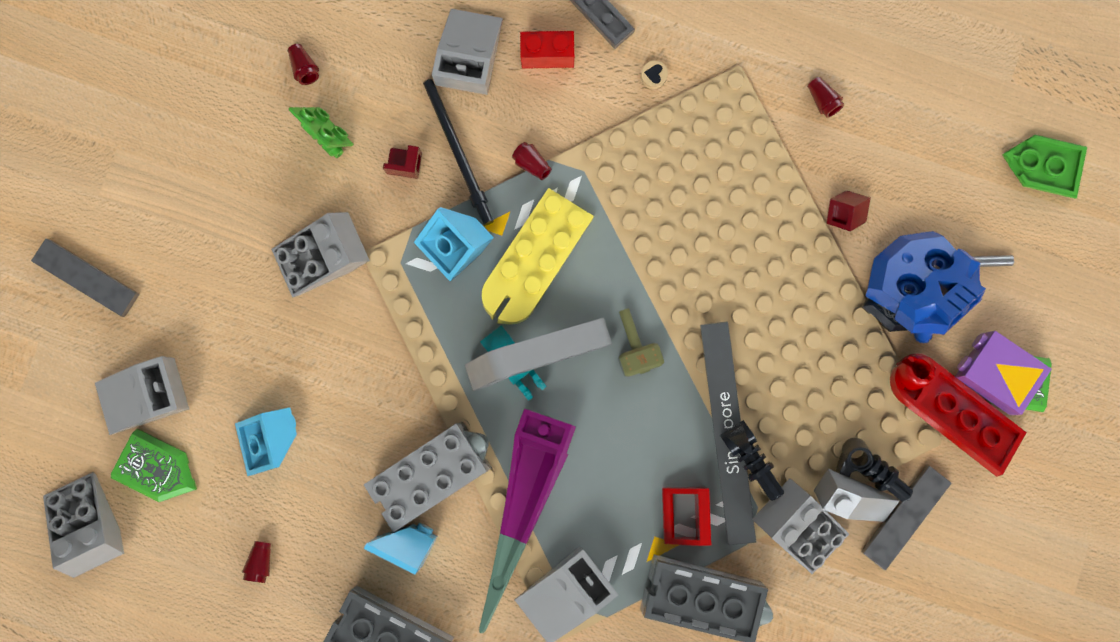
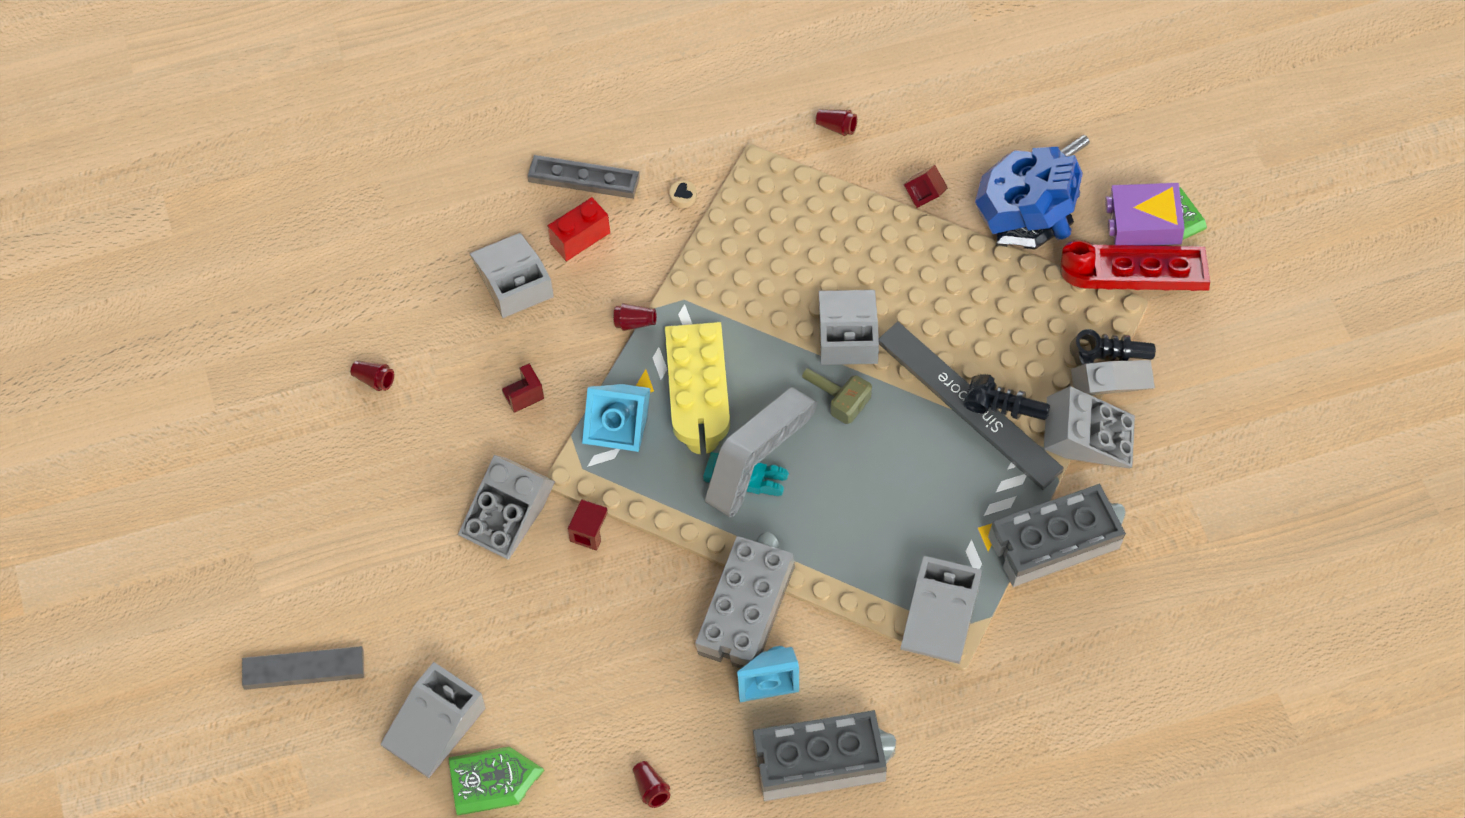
camera: 35 degrees left, 25 degrees down
(266, 439) = (575, 679): medium azure slope -> none
(319, 126) = (419, 404): bright green hinge -> none
(365, 316) = (586, 524): none -> dark red panel
(477, 196) = (608, 372): black bar -> none
(536, 463) = (830, 532): magenta plate -> none
(687, 295) = (848, 327): none -> light grey slope
(702, 516) = (1000, 476): red tile -> none
(906, 518) = (1169, 374): flat silver tile -> none
(1048, 165) = (1053, 57): bright green tile -> none

